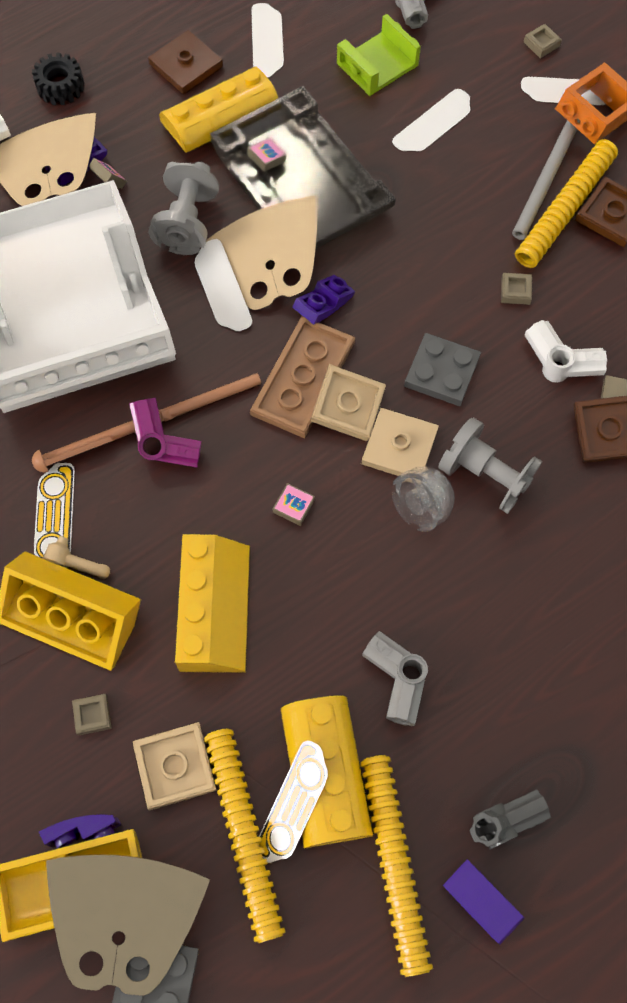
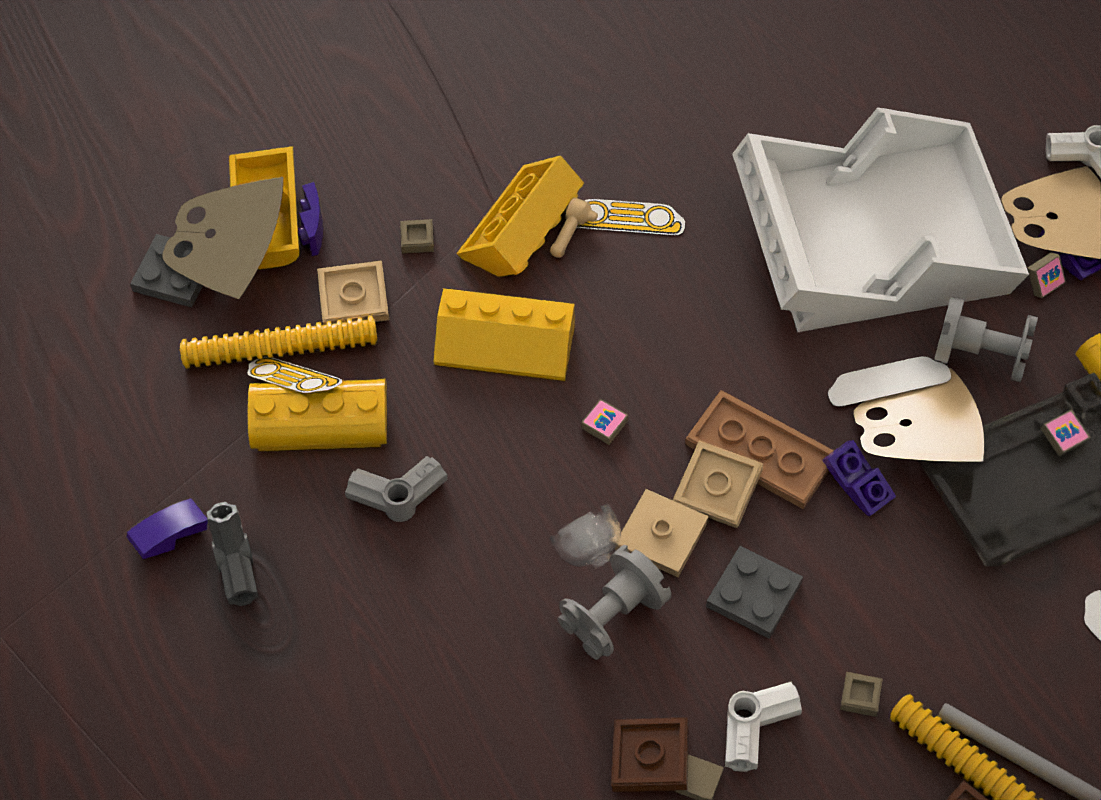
camera: 100 degrees right, 10 degrees down
(41, 461) = (684, 206): nougat bar -> none
(149, 425) = (688, 296): magenta piece -> none
(396, 866) = (220, 460): yellow piece -> none

